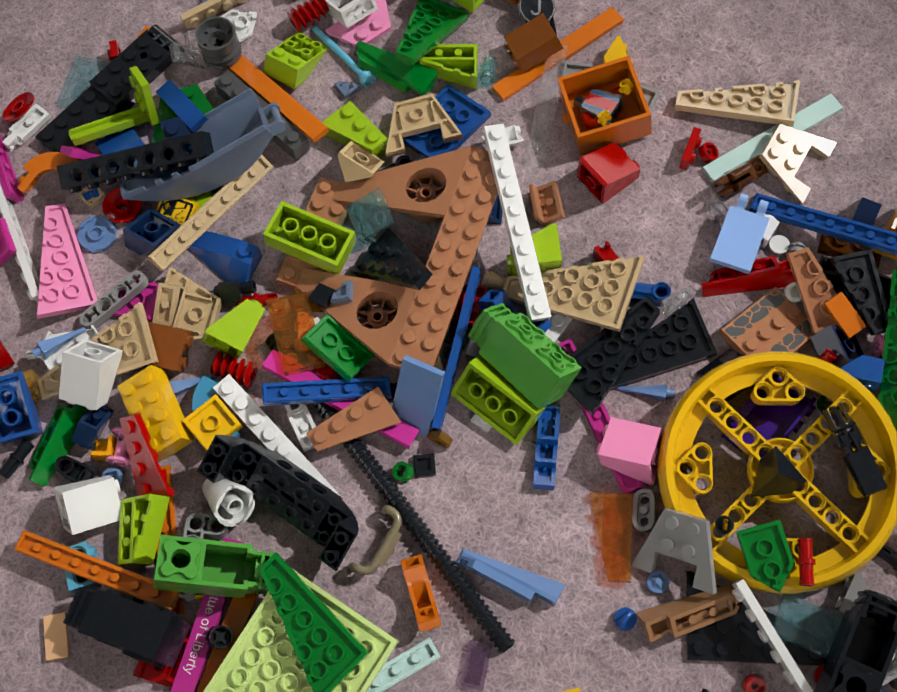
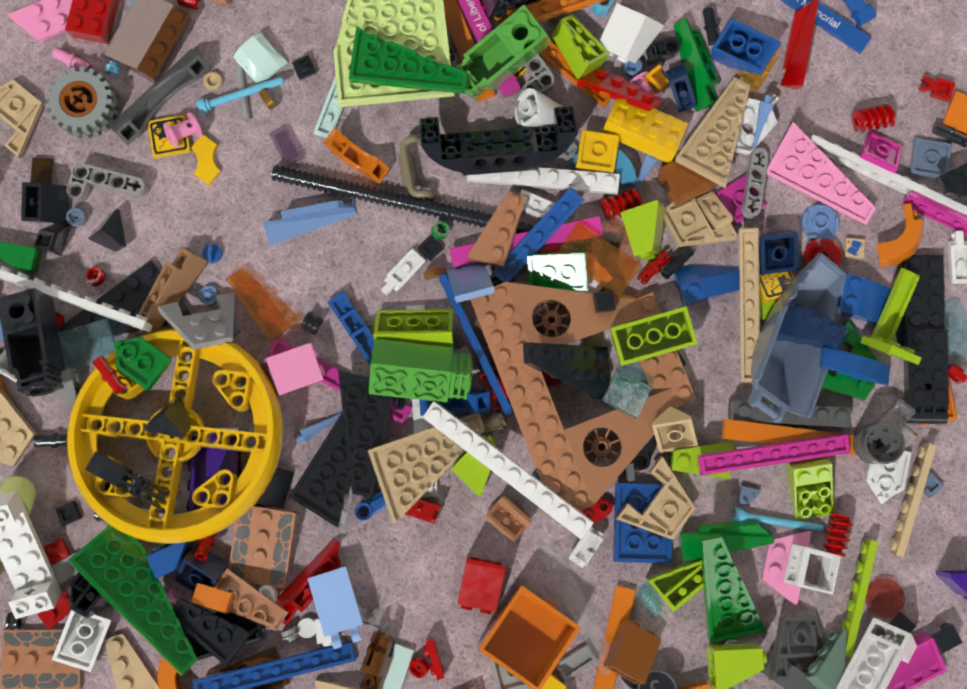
camera: 130 degrees right, 15 degrees up
(70, 173) = (835, 286): black brick -> none
(77, 152) = (888, 266): dark pink tile -> none
(88, 374) = (713, 112): white slope -> none
(219, 637) = (459, 21): black wheel -> none
(230, 291) = (675, 254): black tile -> none
(302, 92) = (773, 454): none -> dark pink tile
(344, 293) = (589, 314): sand blue tile -> none
(466, 462) = (403, 272): none -> white hinge
(582, 481) = (311, 322): none -> black wheel
(601, 106) = (529, 635): torso -> none
(644, 511) = (251, 338): light grey plate -> none
(720, 522) = (186, 355): black hinge -> none

